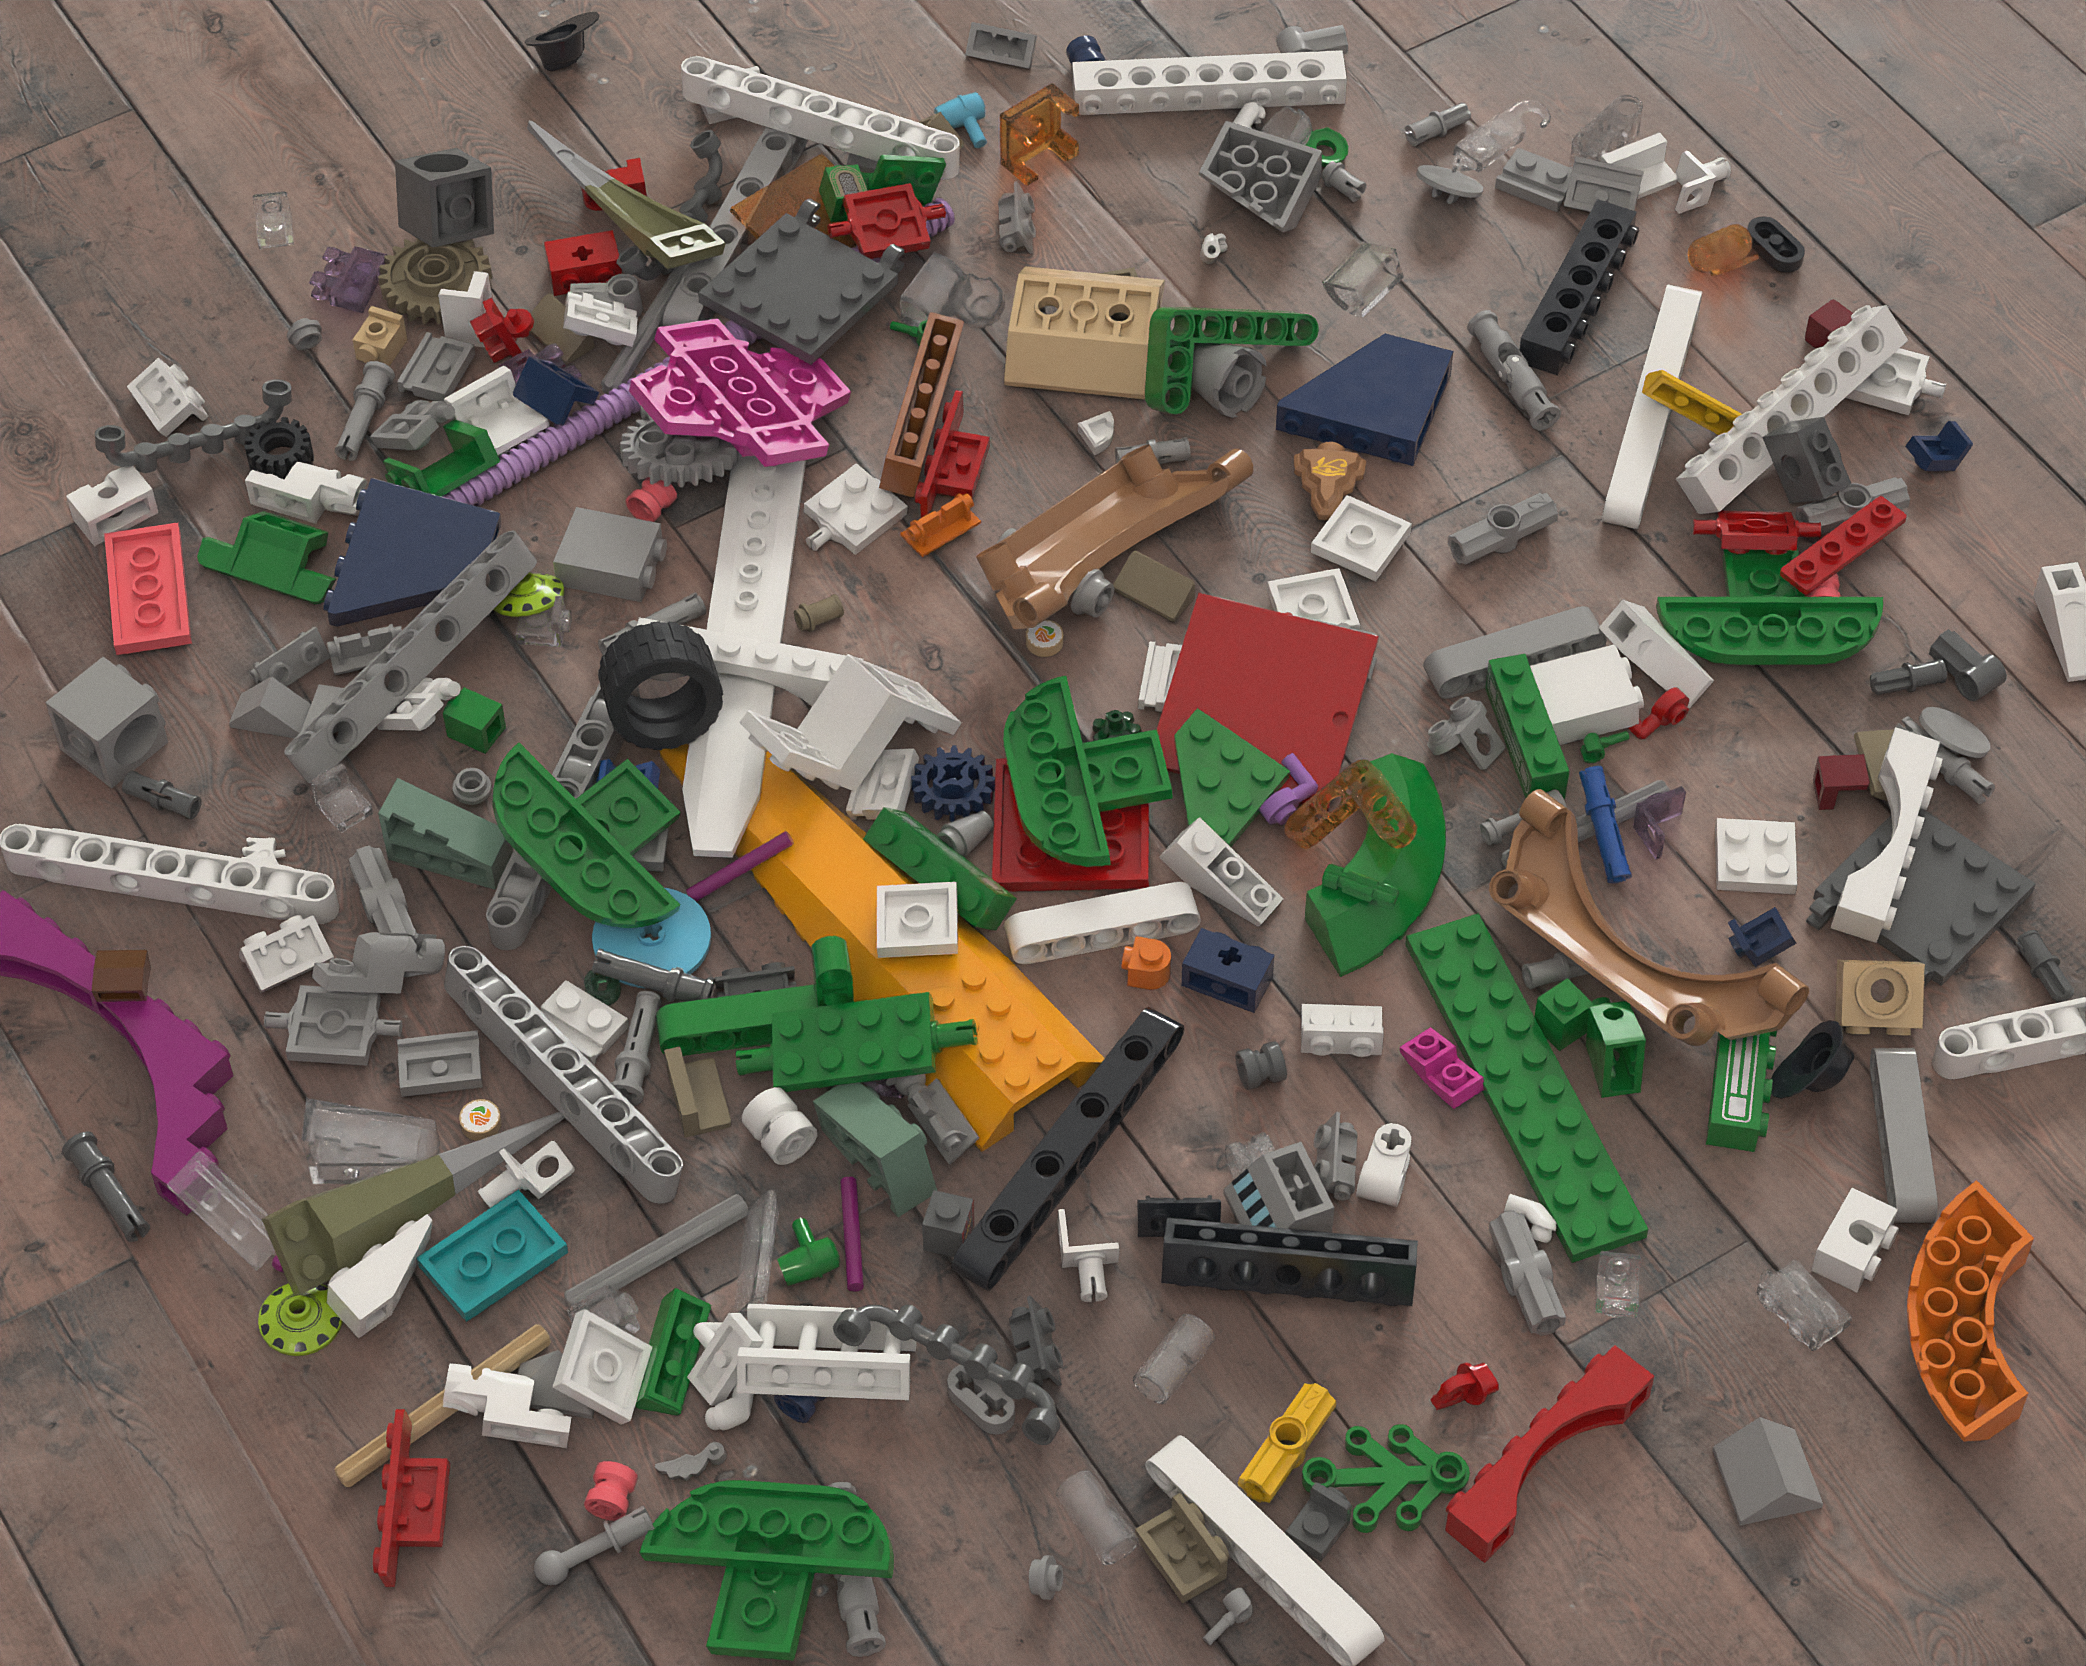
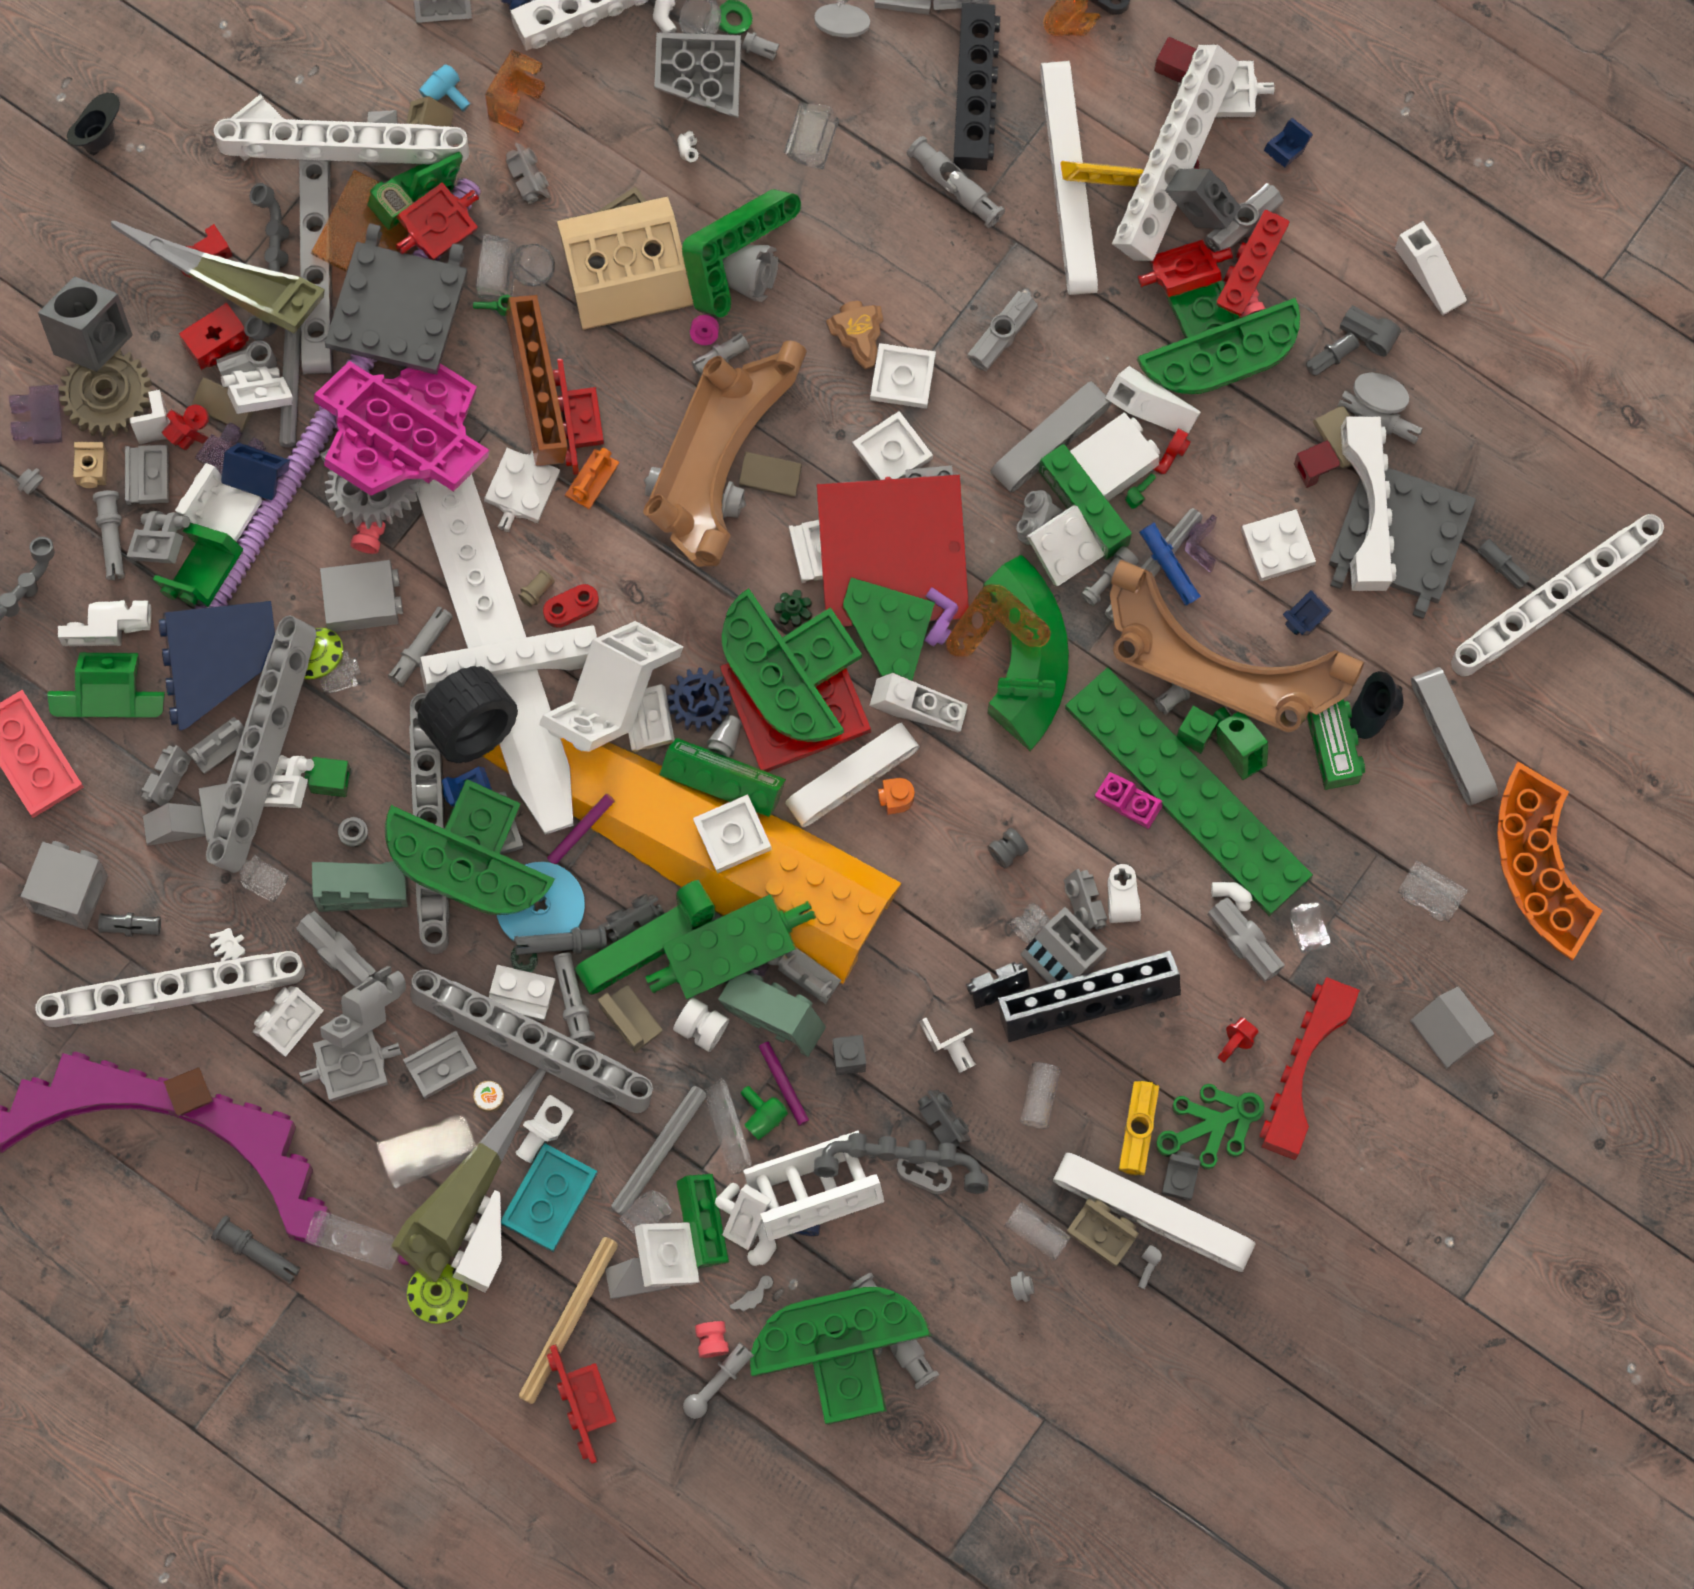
camera: 25 degrees left, 20 degrees up
(275, 436) = (64, 611): black tyre -> none
(505, 1405) = (614, 1307): white plate -> none
(860, 641) = (572, 607): none -> red plate
(1067, 1149) = (904, 962): black beam -> none
(1097, 432) = (670, 348): white tile -> none
(1145, 422) = (704, 330): none -> dark pink tile
(1227, 970) = (970, 783): dark blue brick -> none
(1341, 1029) = (1049, 795): white bracket -> none
(1373, 399) = (864, 248): dark blue slope -> none
(1481, 765) = (1065, 545): none -> white plate
(1854, 1240) = (1443, 846): white brick -> none
(1897, 1011) = (1417, 643): tan brick -> none

